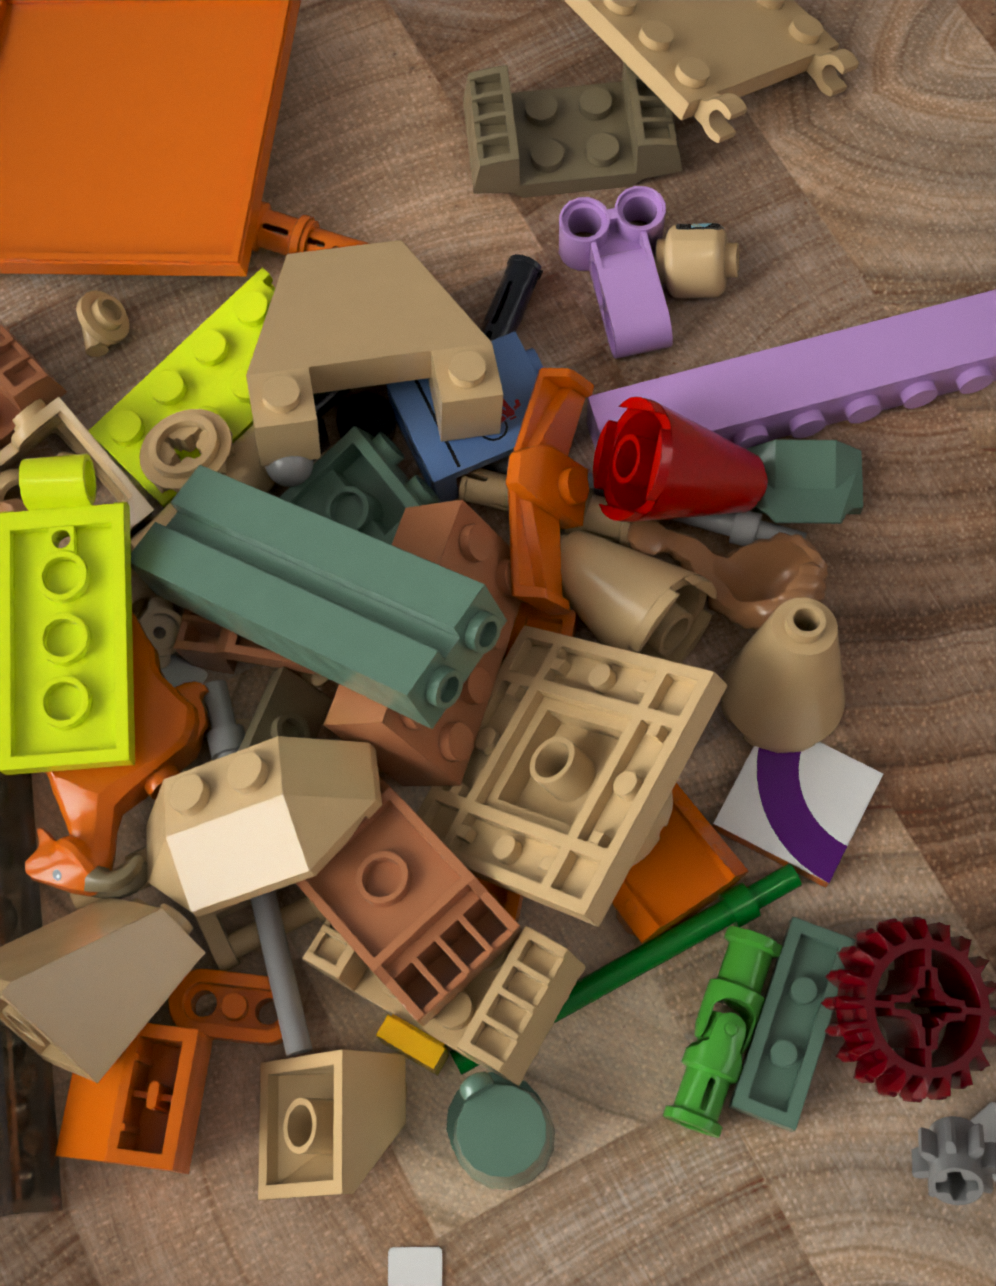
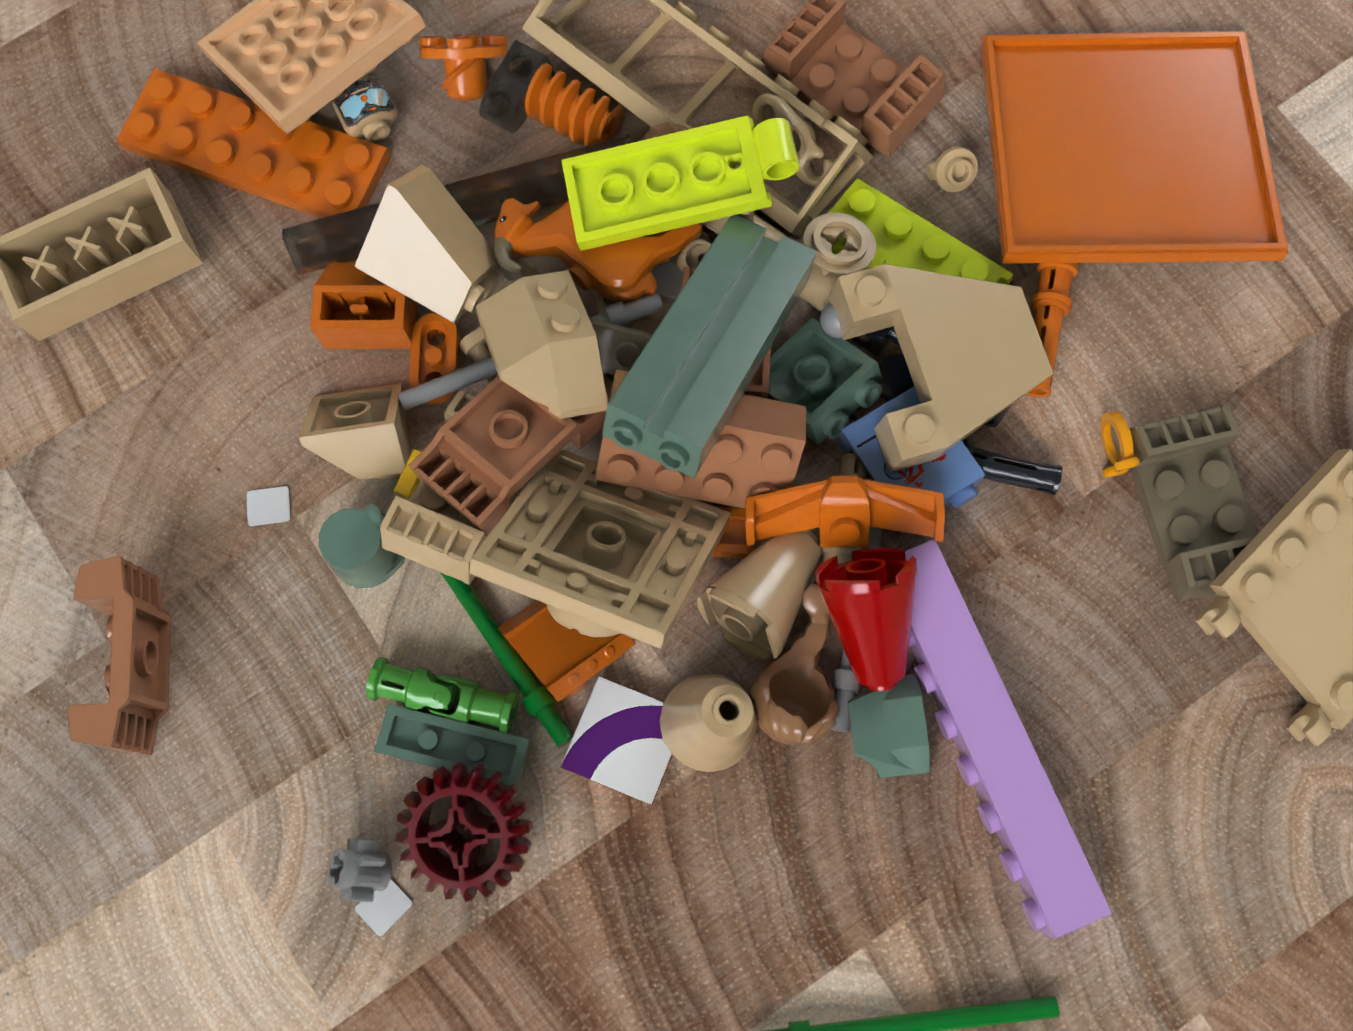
camera: 85 degrees right, 5 degrees up
(515, 185) = (1127, 458): none -> light orange piece
(621, 266) = (1068, 559): lavender piece -> none
(696, 260) = (1087, 619): tan head -> none

